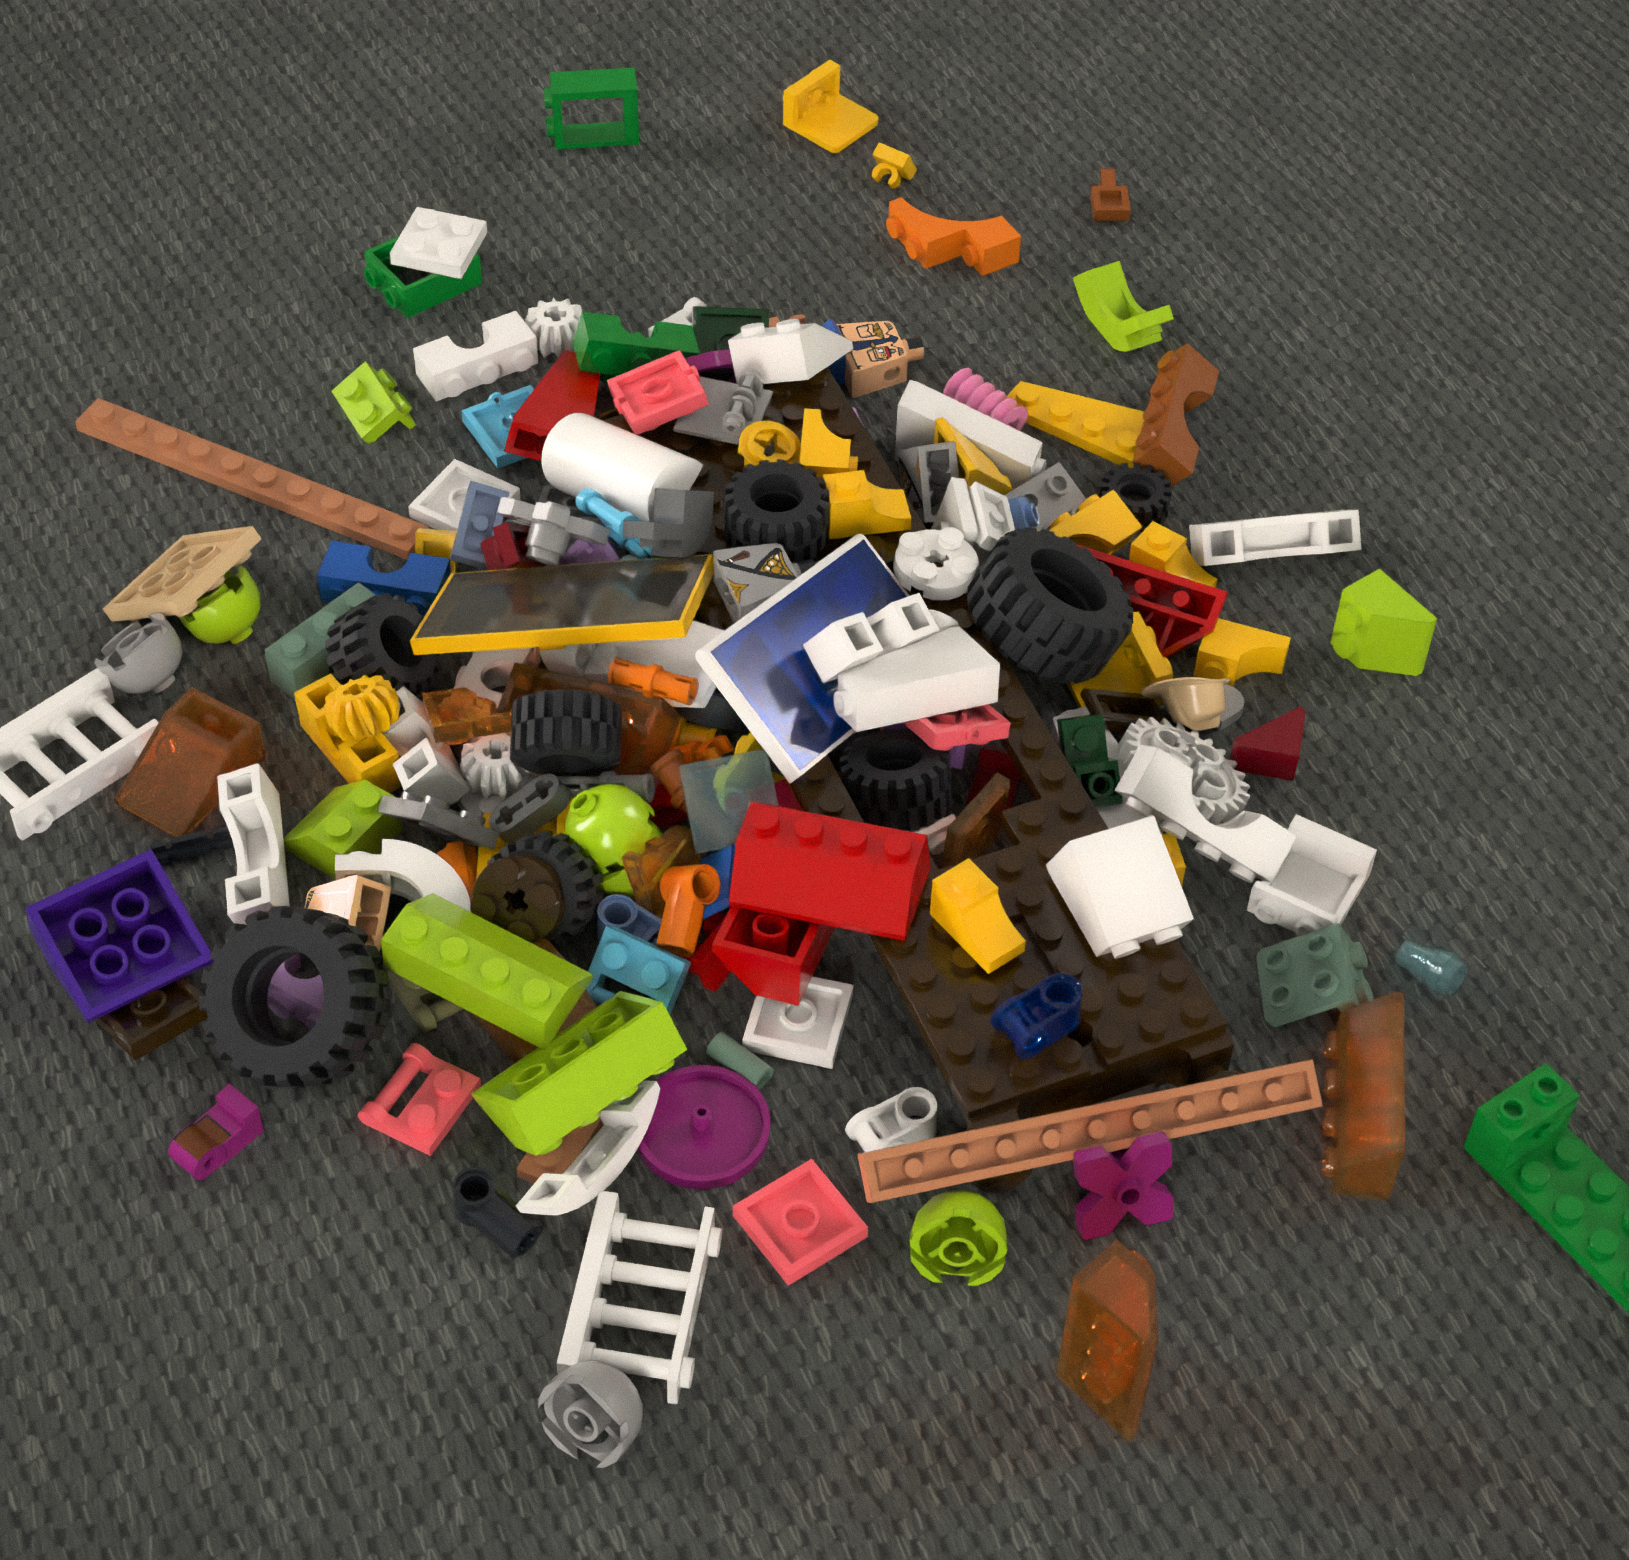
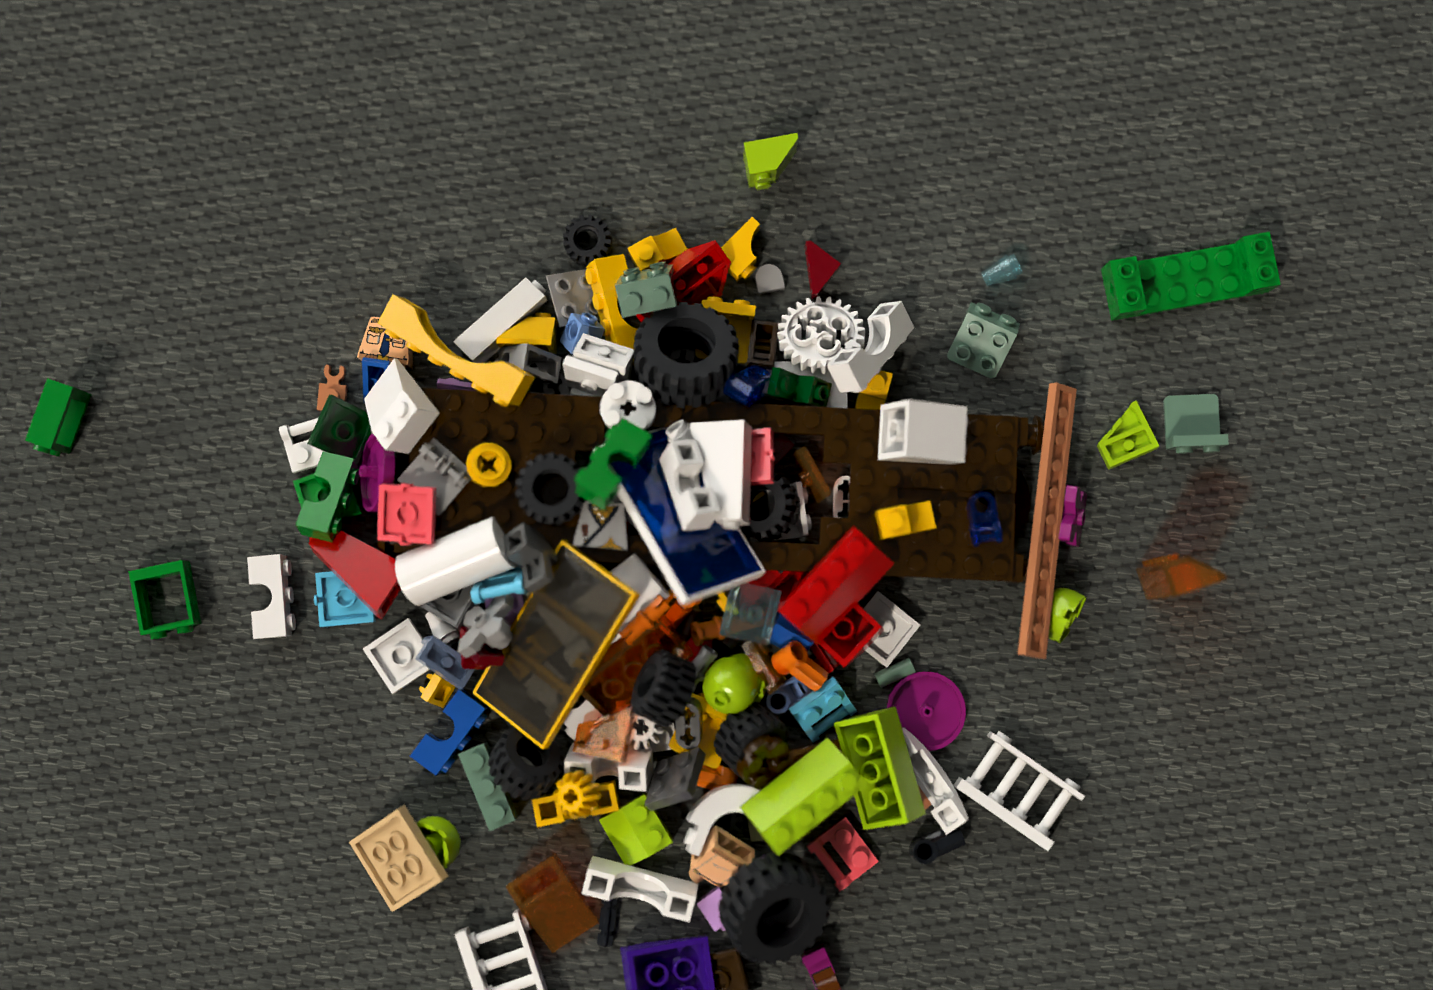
camera: 60 degrees left, 35 degrees up
(142, 657) = (453, 905): light grey cylinder -> none
(250, 478) = (311, 782): nougat plate -> none
(372, 403) = (281, 679): lime bracket -> none
(438, 242) = (159, 583): white plate -> none
(554, 325) = (263, 543): white gear -> none
(585, 1403) = (1076, 839): light grey cylinder -> none
(800, 1221) = (1009, 687): coral plate -> none
(822, 114) = (128, 251): yellow bracket -> none
(822, 449) = (516, 437): yellow arch -> none
(862, 507) = (565, 429): yellow arch -> none
(878, 543) = (624, 443): none -> green arch
(888, 416) = (413, 325): none -> yellow arch
(889, 1123) = (976, 614): white piece -> none
(892, 162) = (204, 232): yellow tile -> none
(934, 240) = (294, 247): orange arch -> none
(982, 397) = (471, 294): bright pink piece -> none
(1056, 693) = (747, 385): none -> clear blue piece
(1082, 421) = (510, 229): yellow wing -> none
(1108, 200) = (307, 106): dark orange plate -> none
(1108, 528) = (646, 289): none -> sand green bracket
(1115, 311) = (424, 163): lime arch -> none
(1180, 385) = (557, 199): dark orange arch -> none
(1191, 700) = (771, 300): tan piece -> none
(1275, 537) = (672, 148): white arch -> none
(1294, 1233) = (1127, 438): none -> lime wing
(1314, 880) = (923, 301): white panel -> none
(1366, 1098) = (1074, 359): clear orange slope -> none
(1382, 1317) = (1193, 423): none -> sand green bracket

